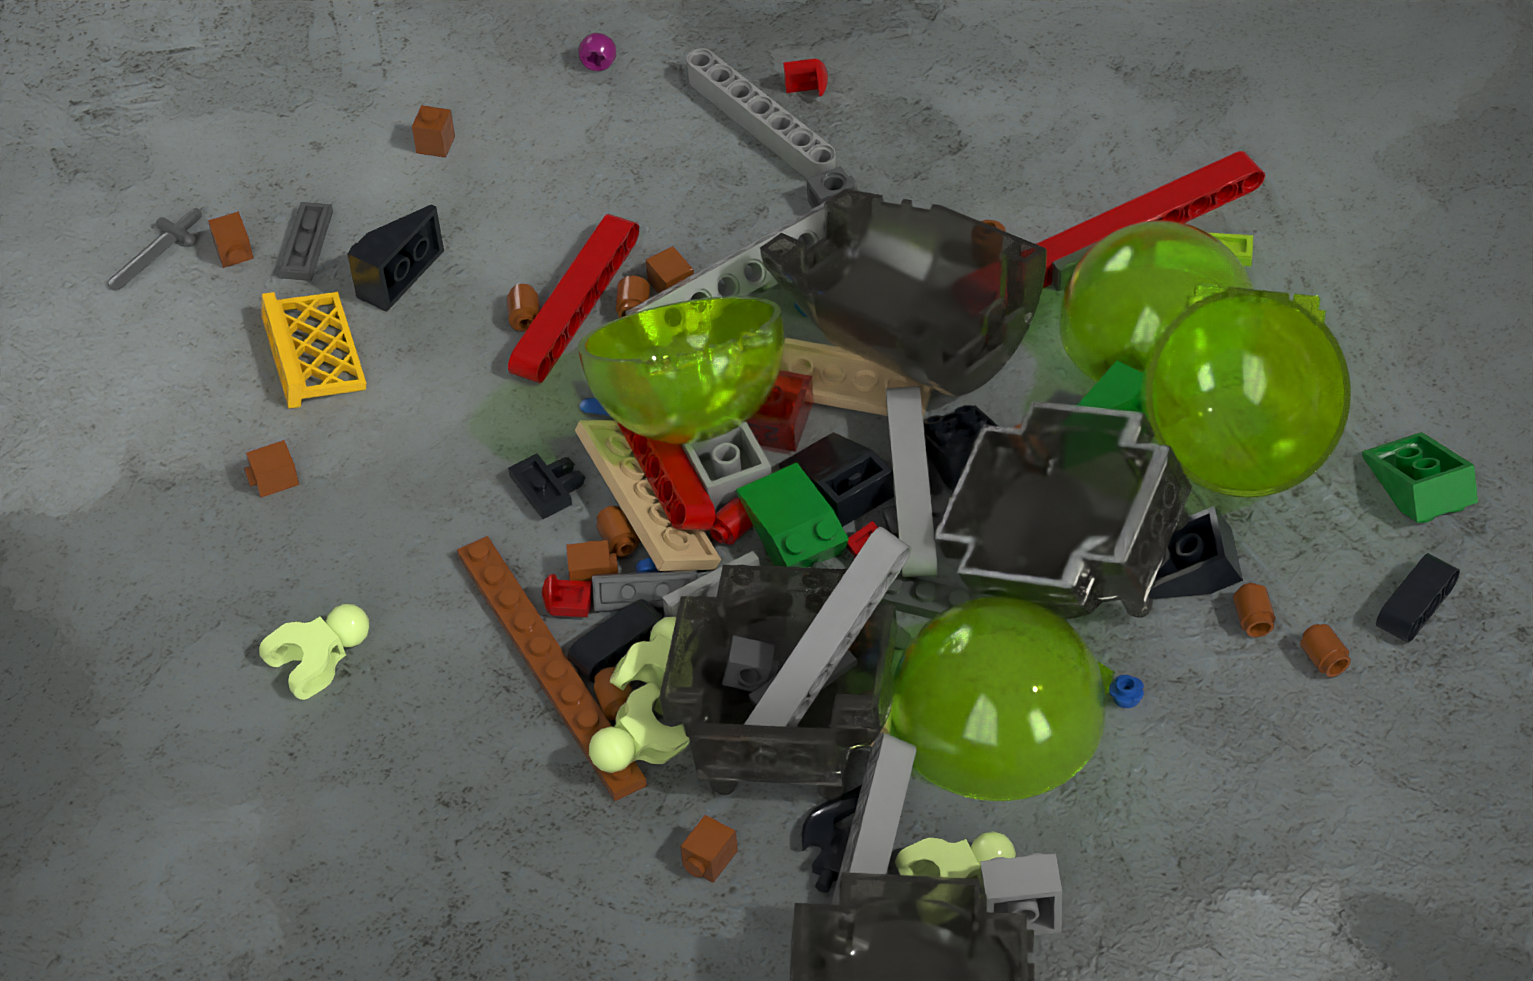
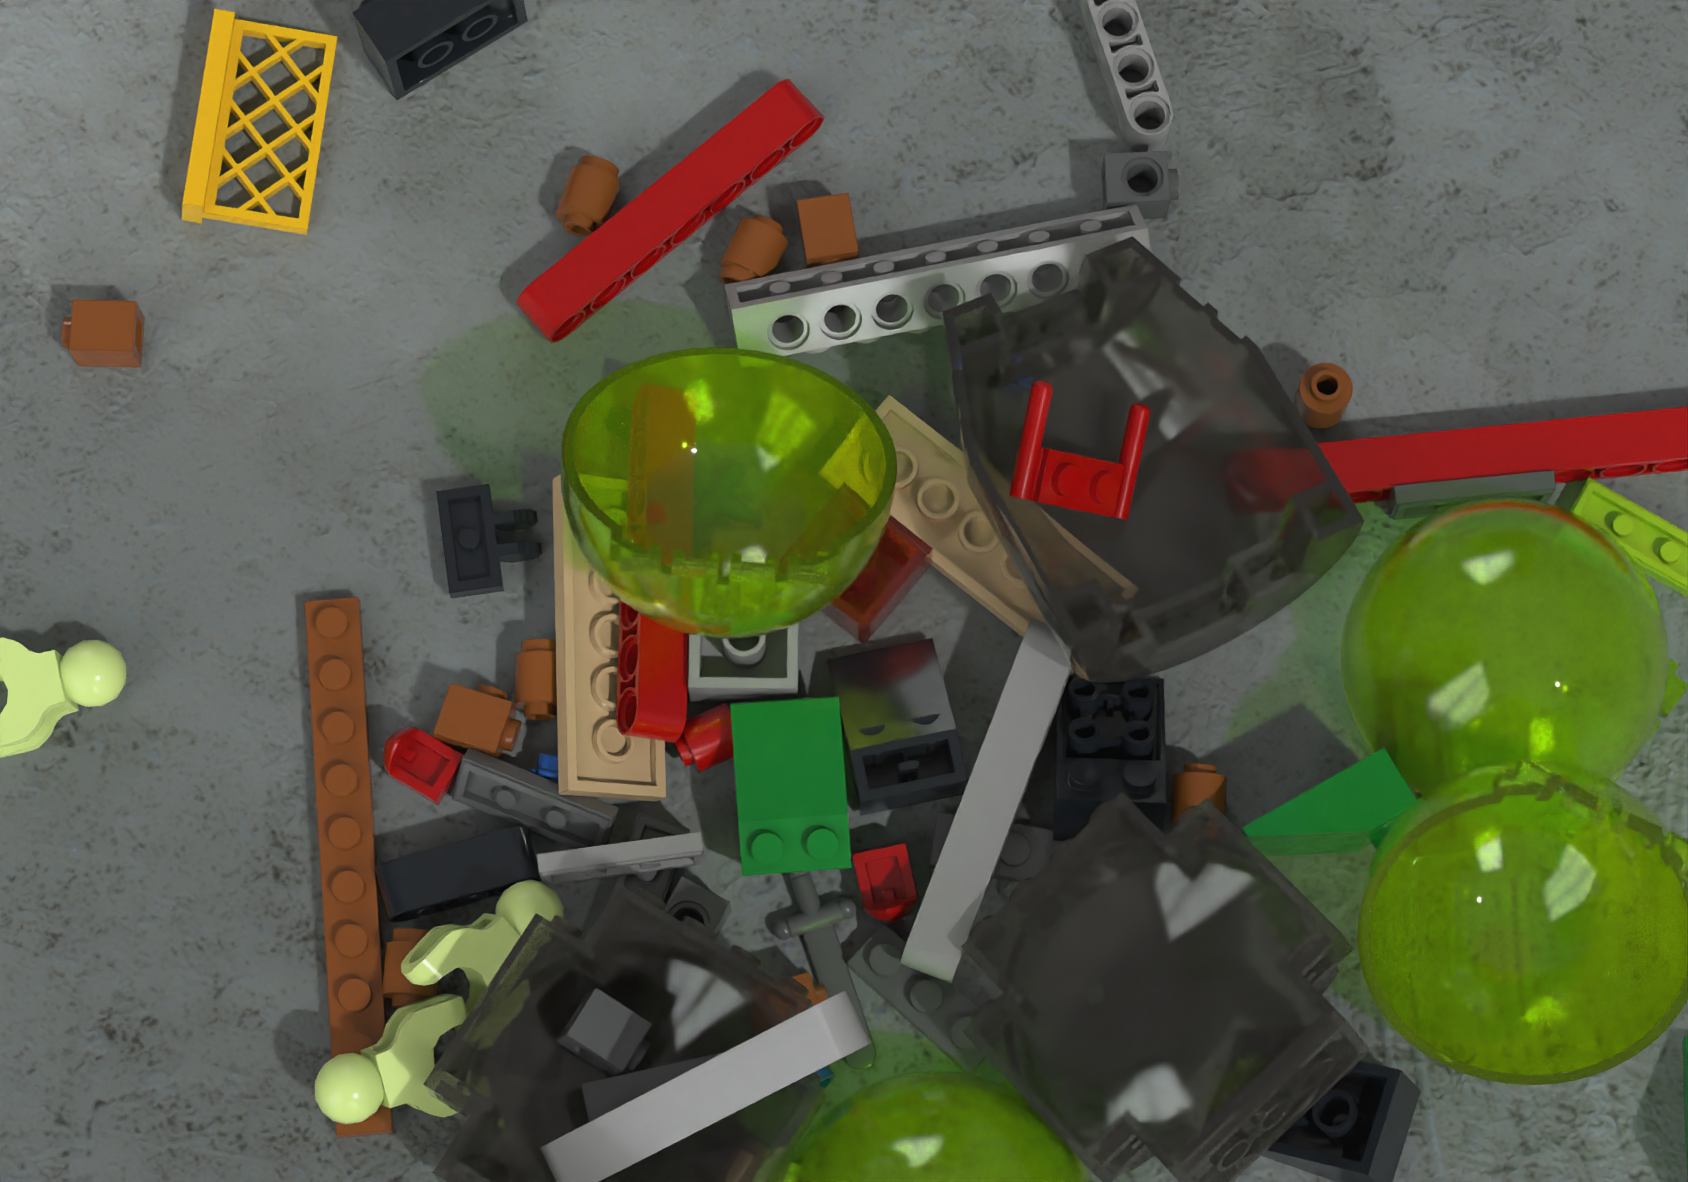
camera: 20 degrees right, 25 degrees up
(890, 312) = (1073, 479): none -> red plate

